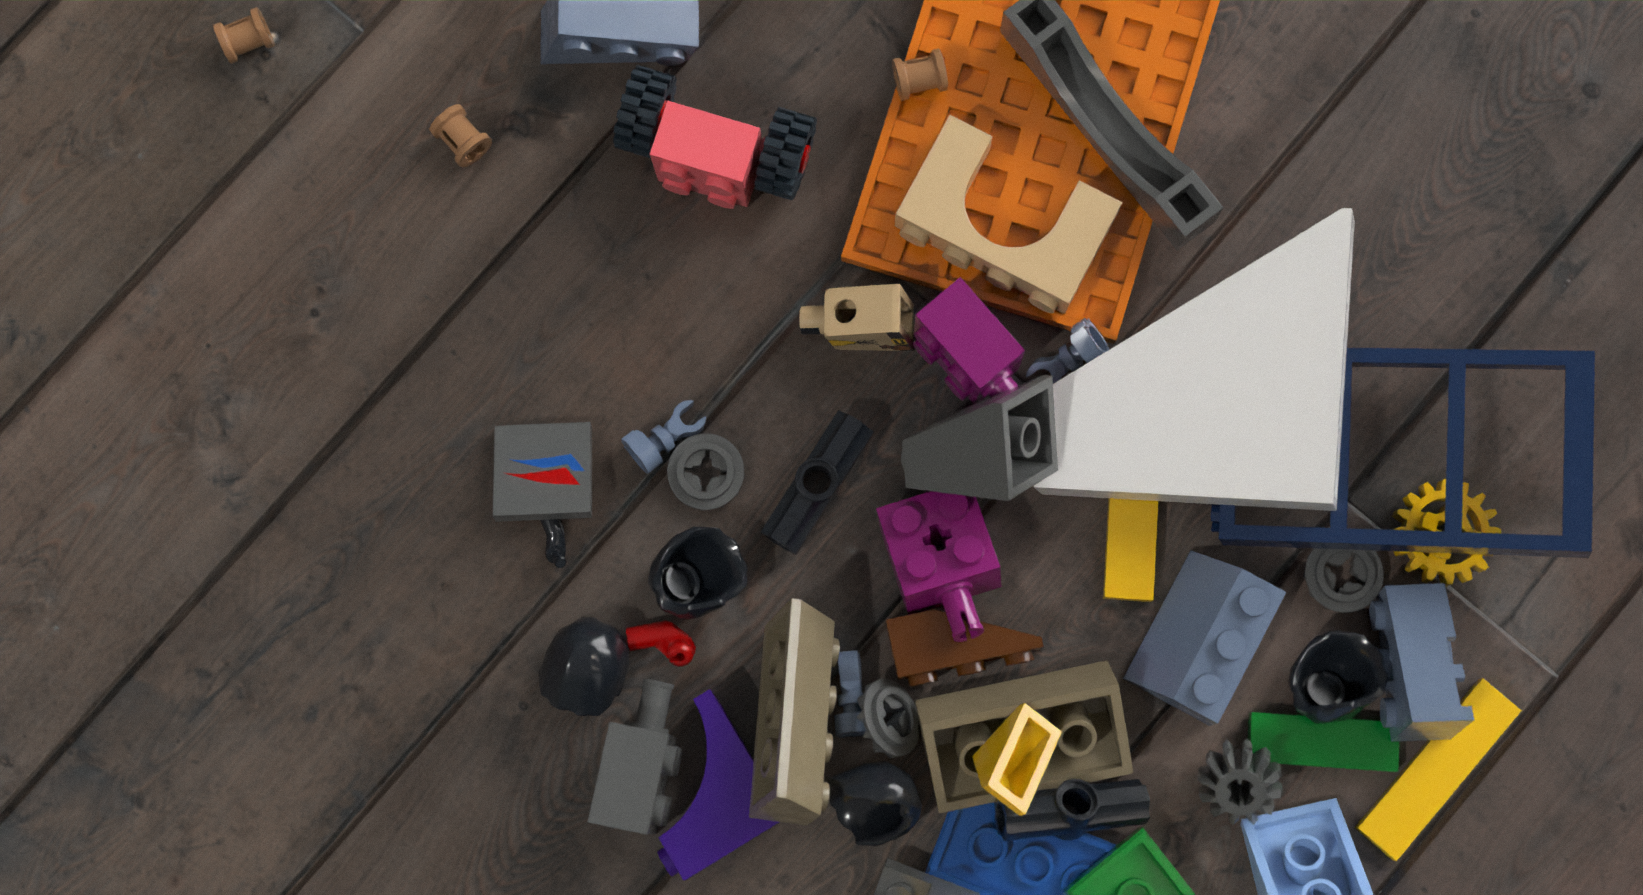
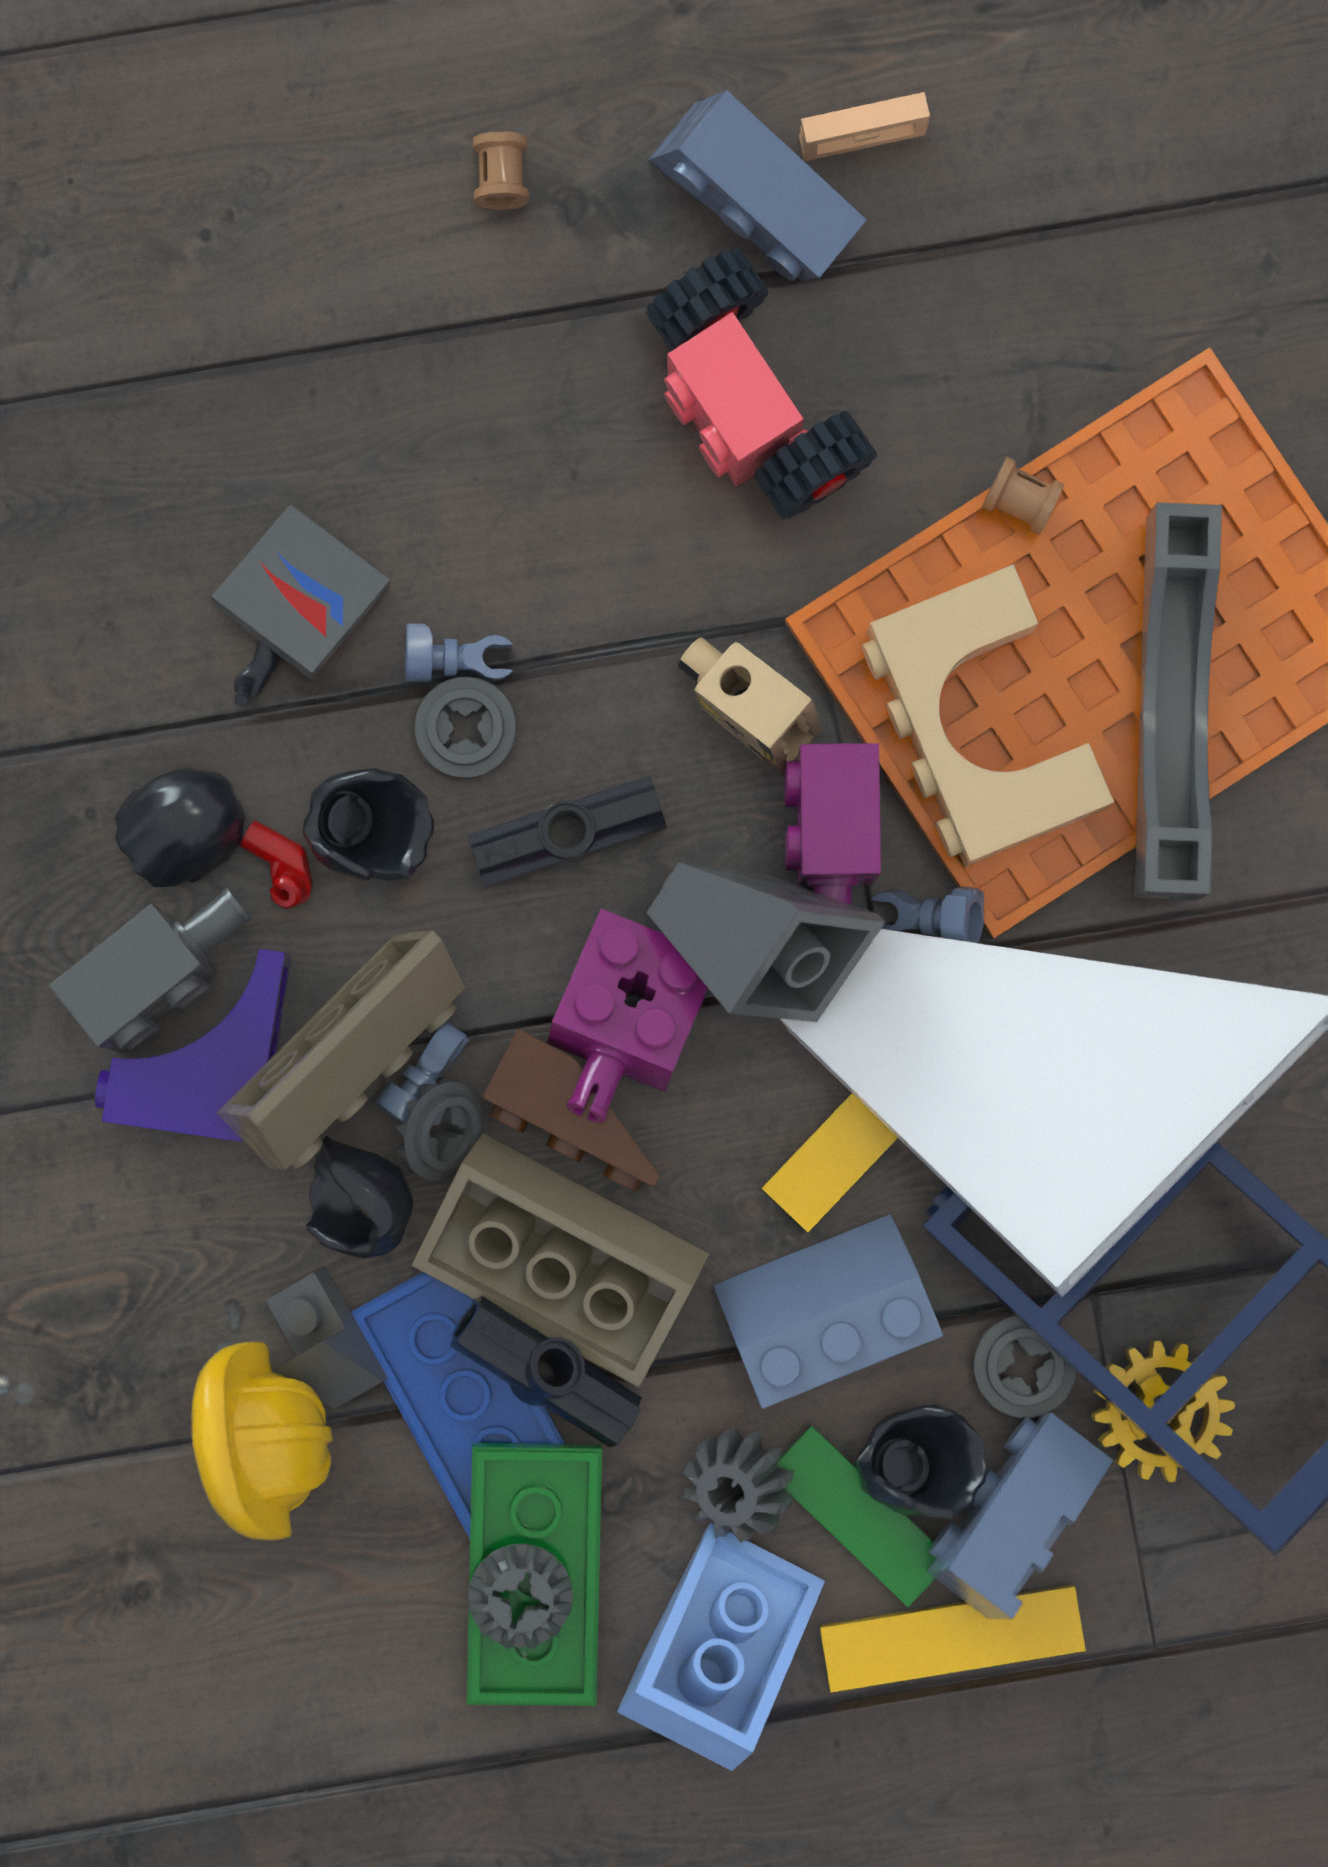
camera: 35 degrees right, 5 degrees up
(1016, 758) = (527, 1275): yellow slope -> none

